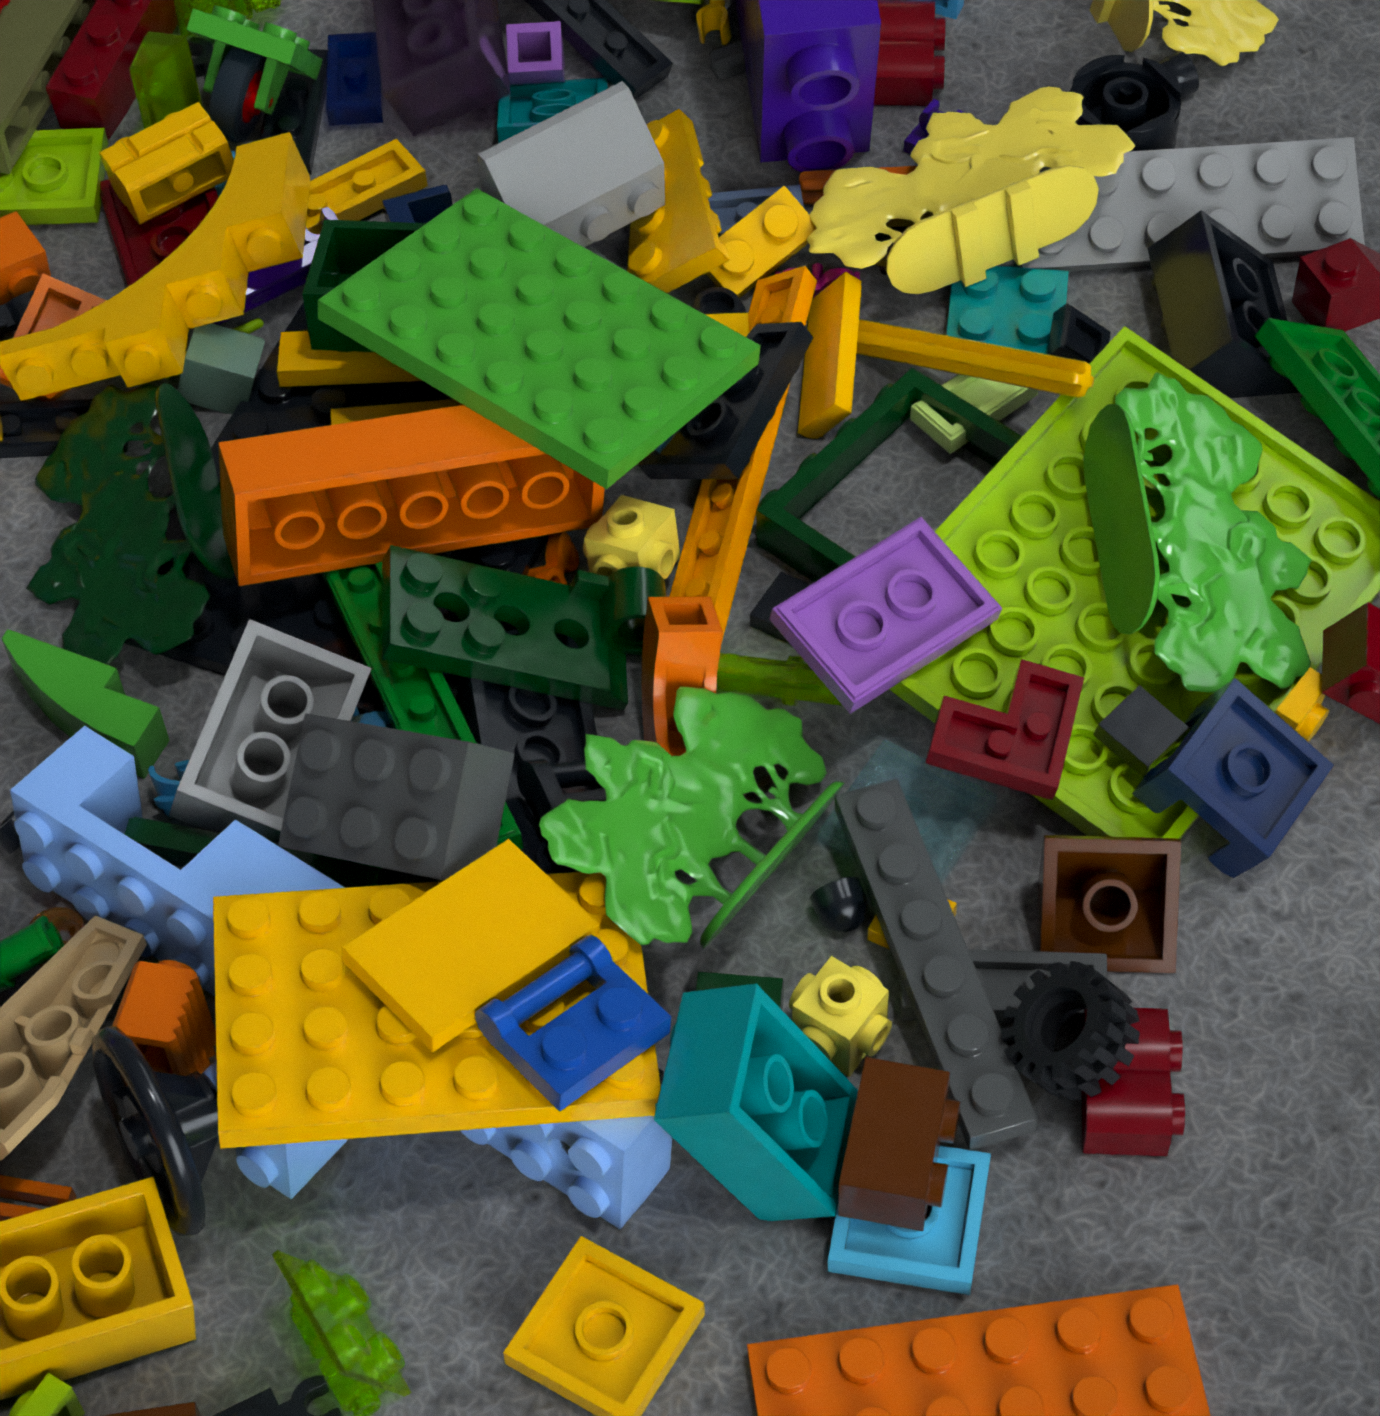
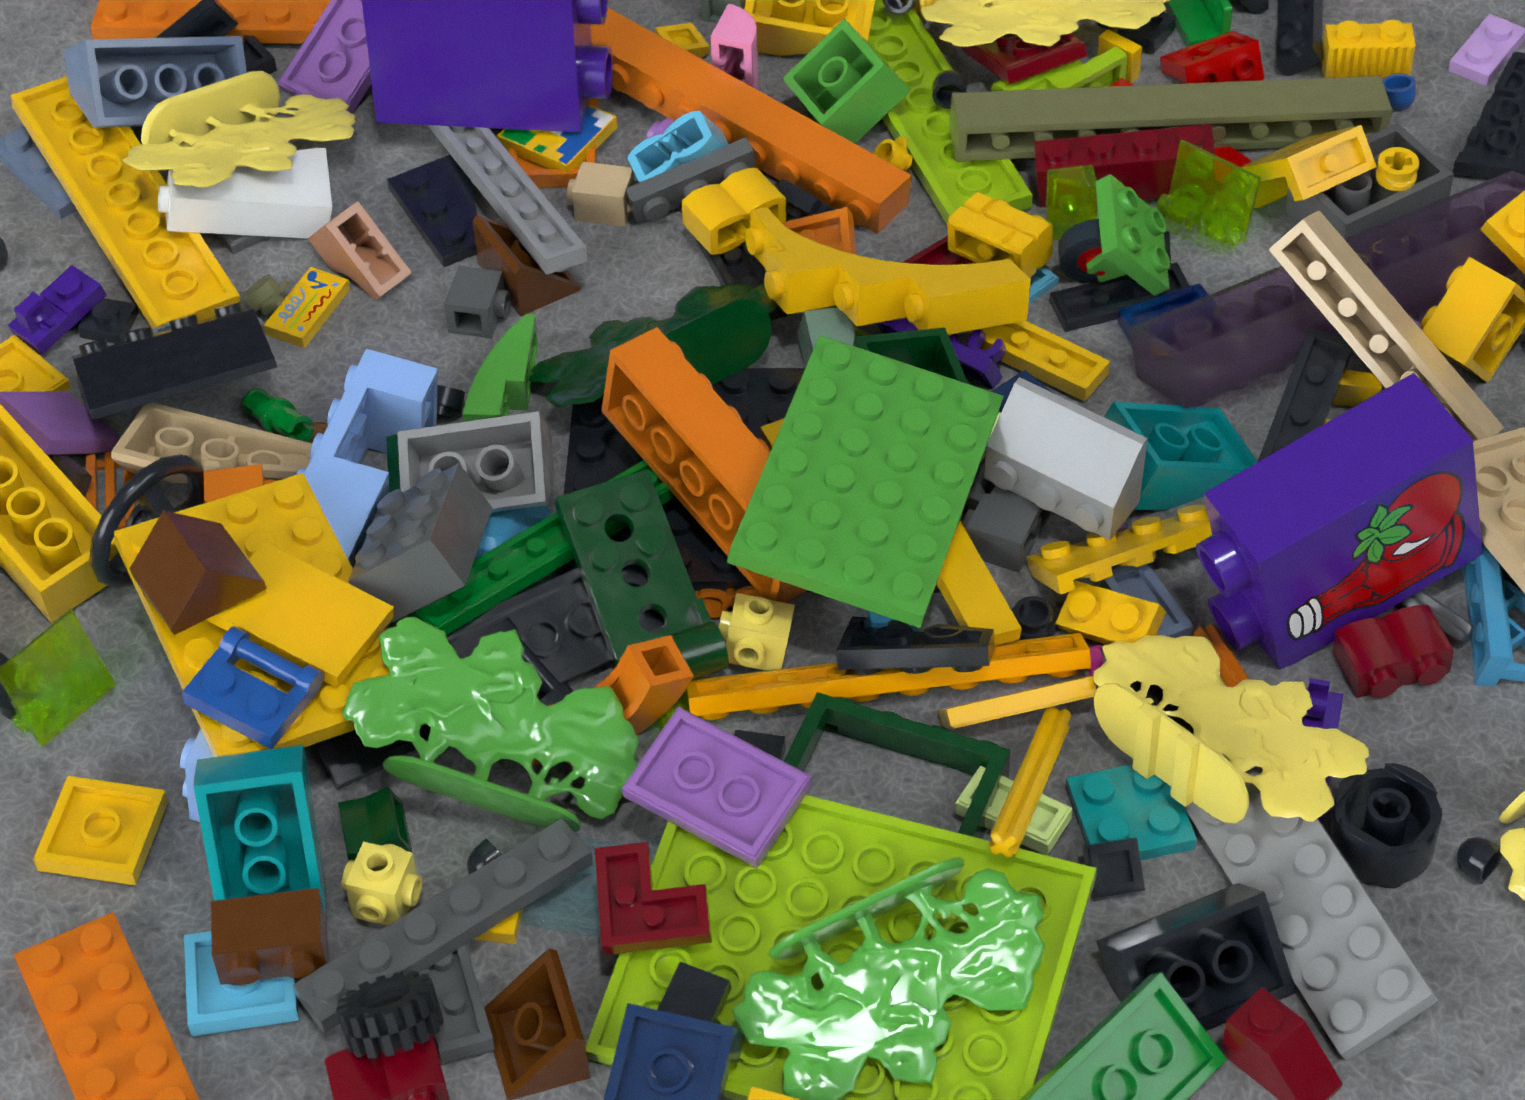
camera: 70 degrees right, 5 degrees down
(371, 1036) = (193, 570): none -> reddish brown slope
(535, 53) = (1242, 412): medium lavender brick -> none

